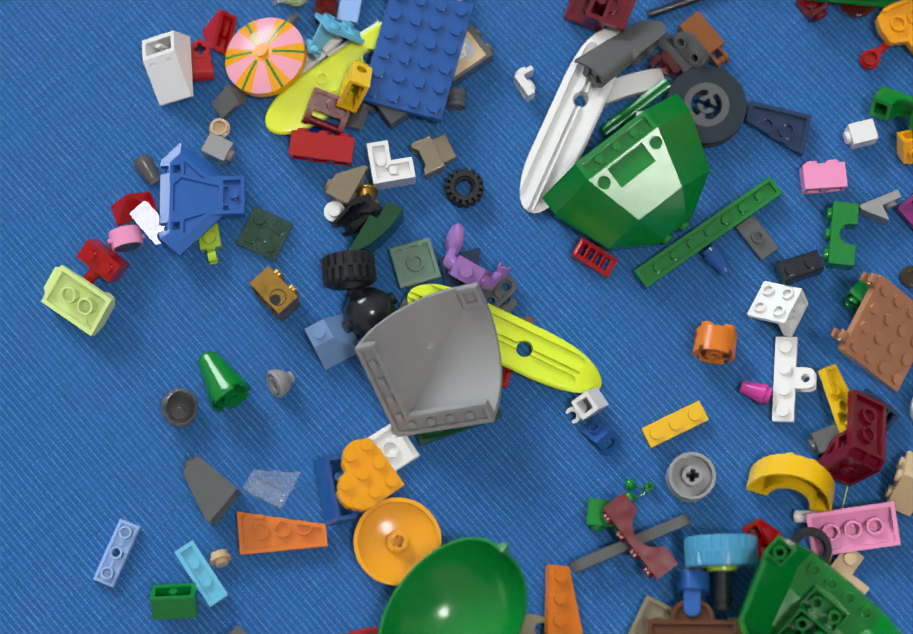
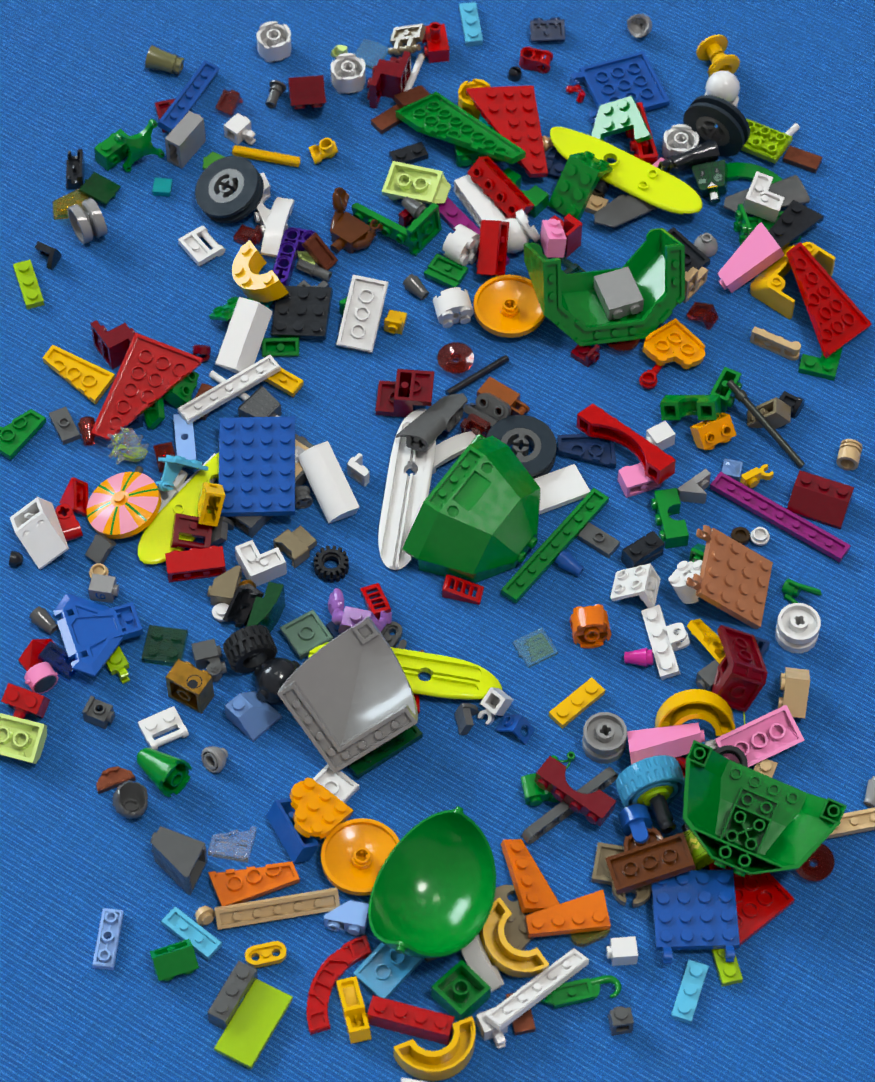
camera: 15 degrees left, 20 degrees down
(137, 88) = (15, 559): none -> black hinge
(168, 288) = (101, 718): none -> dark grey brick
(171, 372) = (112, 778): none -> copper tile
(234, 324) = (160, 724): none -> white plate
(269, 619) = (265, 954): none -> yellow plate
(295, 572) = (277, 908): none -> tan plate
(305, 259) = (207, 656): none -> dark grey brick
(367, 604) = (348, 917): none -> light blue slope
(487, 92) = (328, 482): none -> white brick
(494, 261) = (371, 607): none -> red slope
(550, 410) = (464, 717): none -> dark grey tile
(650, 346) = (535, 647): none -> clear light blue piece
(734, 164) = (561, 488): none -> white tile
(749, 504) = (666, 740): none -> bright pink slope
(798, 102) = (599, 424): none -> red arch
(835, 314) = (679, 578): none -> white brick

